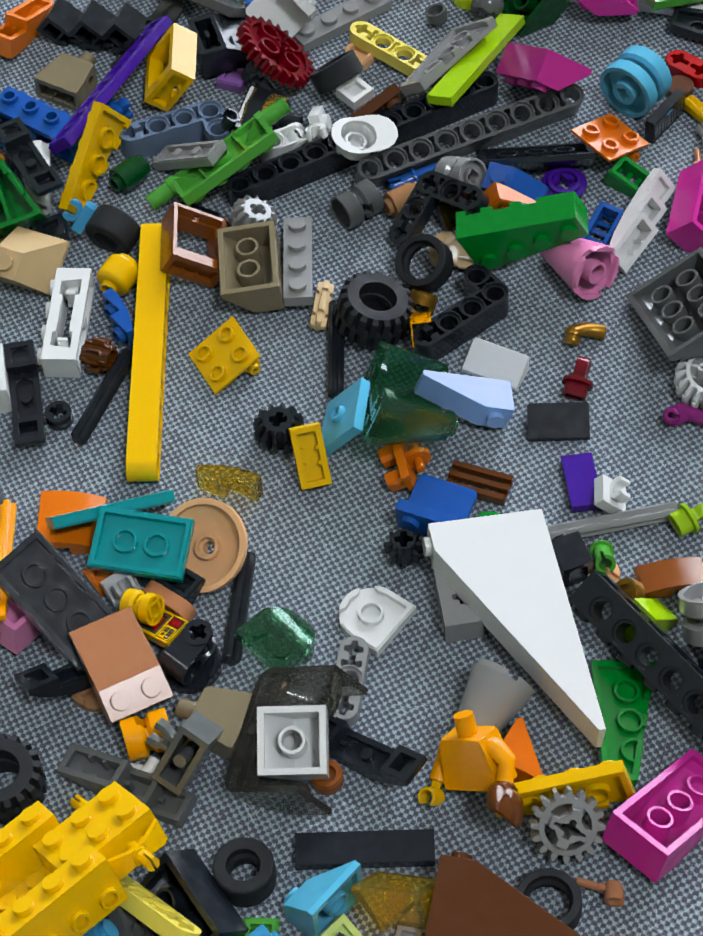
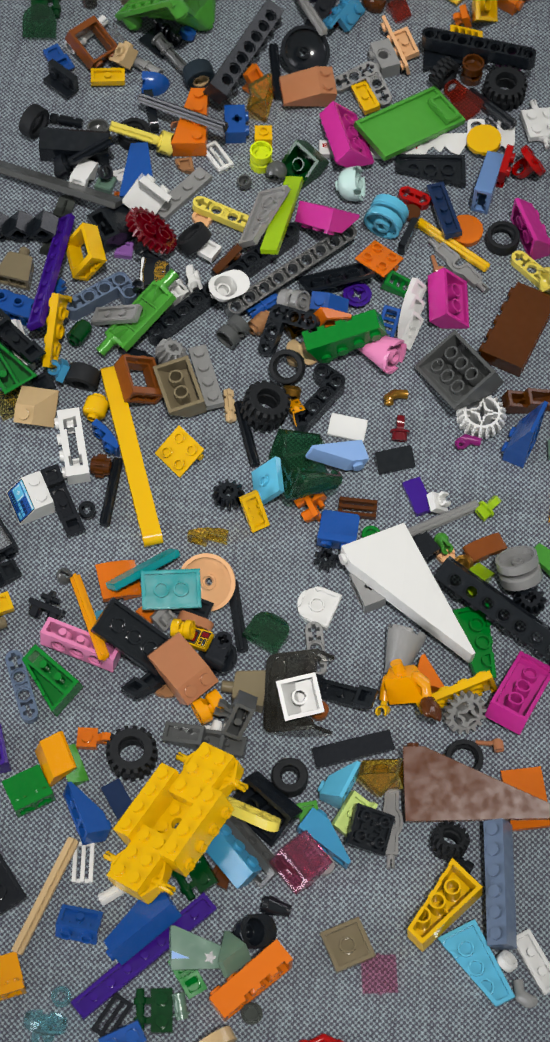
camera: 20 degrees left, 10 degrees up
(595, 35) = (351, 184): none -> light aqua cylinder

